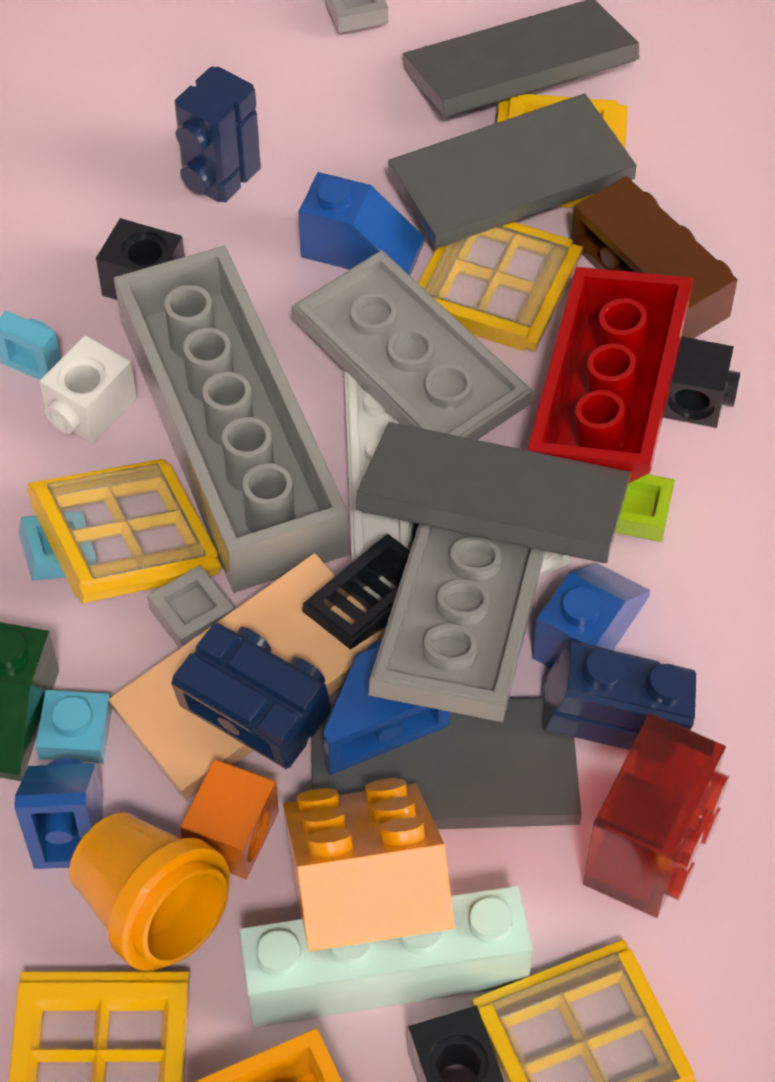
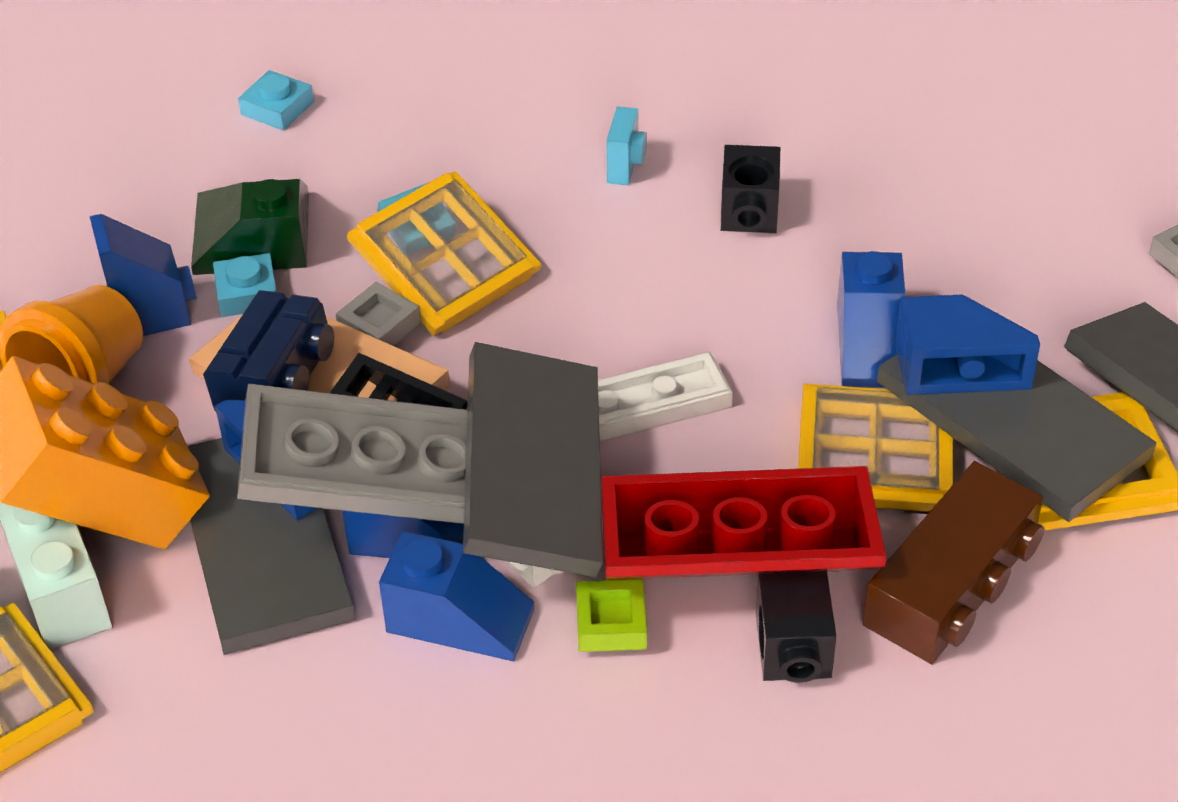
camera: 75 degrees right, 10 degrees down
(88, 390) = (590, 192): white brick -> none
(217, 134) = (917, 181): dark blue brick -> none
(232, 418) = (592, 270): light grey brick -> none
(233, 814) = (169, 378): orange brick -> none
(410, 351) = (724, 389): light grey tile -> none
(455, 169) = (961, 347): none -> blue slope
(610, 693) = (338, 627): dark blue brick -> none
(656, 816) = (199, 673): clear red brick -> none

